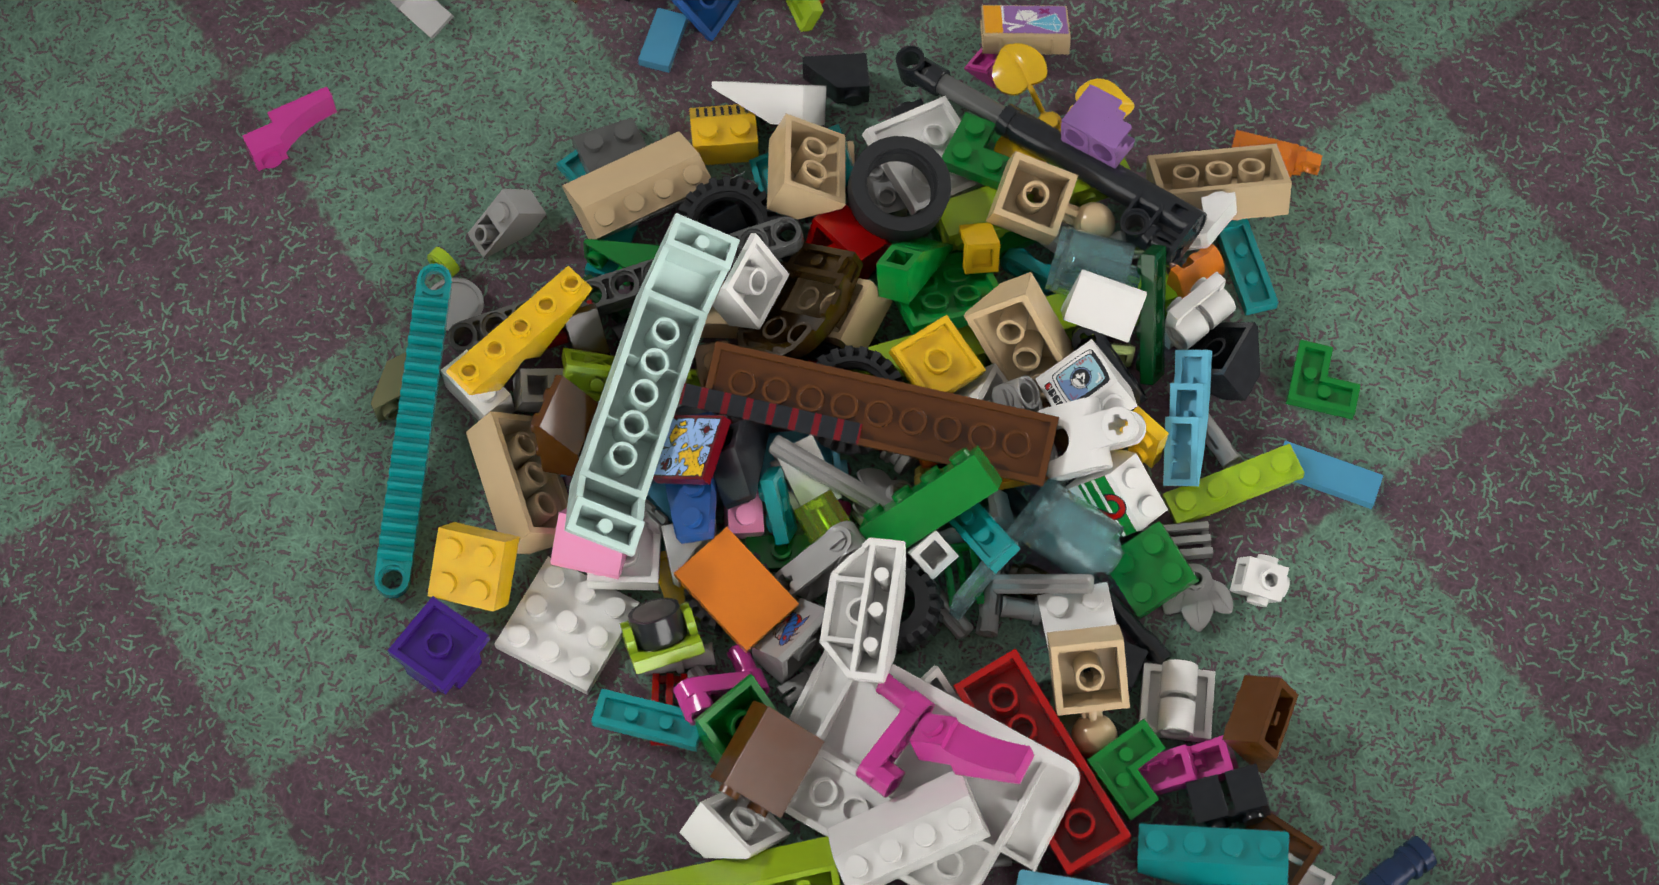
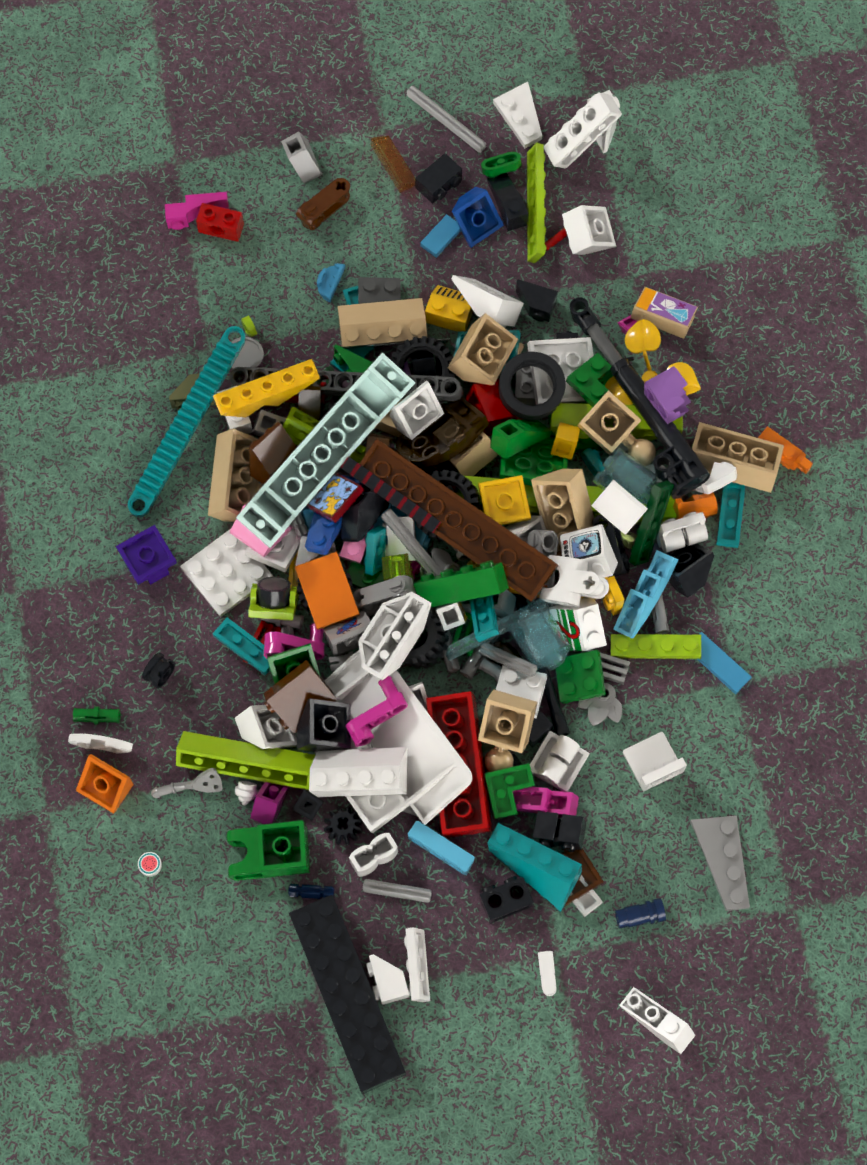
camera: 25 degrees right, 5 degrees up
(334, 133) = (220, 222): none -> red brick
(473, 566) = (185, 516): yellow brick -> none
(476, 54) = (324, 204): none -> reddish brown piece
(506, 221) = (297, 315): light grey slope -> none
(529, 158) = (329, 280): none -> dark azure tile
(532, 808) = (158, 670): none -> black wheel
(822, 788) = (324, 726): none -> black slope
(969, 751) = (413, 739): dark pink slope -> none
(1260, 580) = (637, 704): white brick -> none
(1260, 719) = (598, 792): reddish brown slope -> none
(1308, 646) = (653, 761): none -> white bracket
(1314, 390) = (735, 607): green plate -> none
(1462, 731) = (723, 854): none -> light grey wing

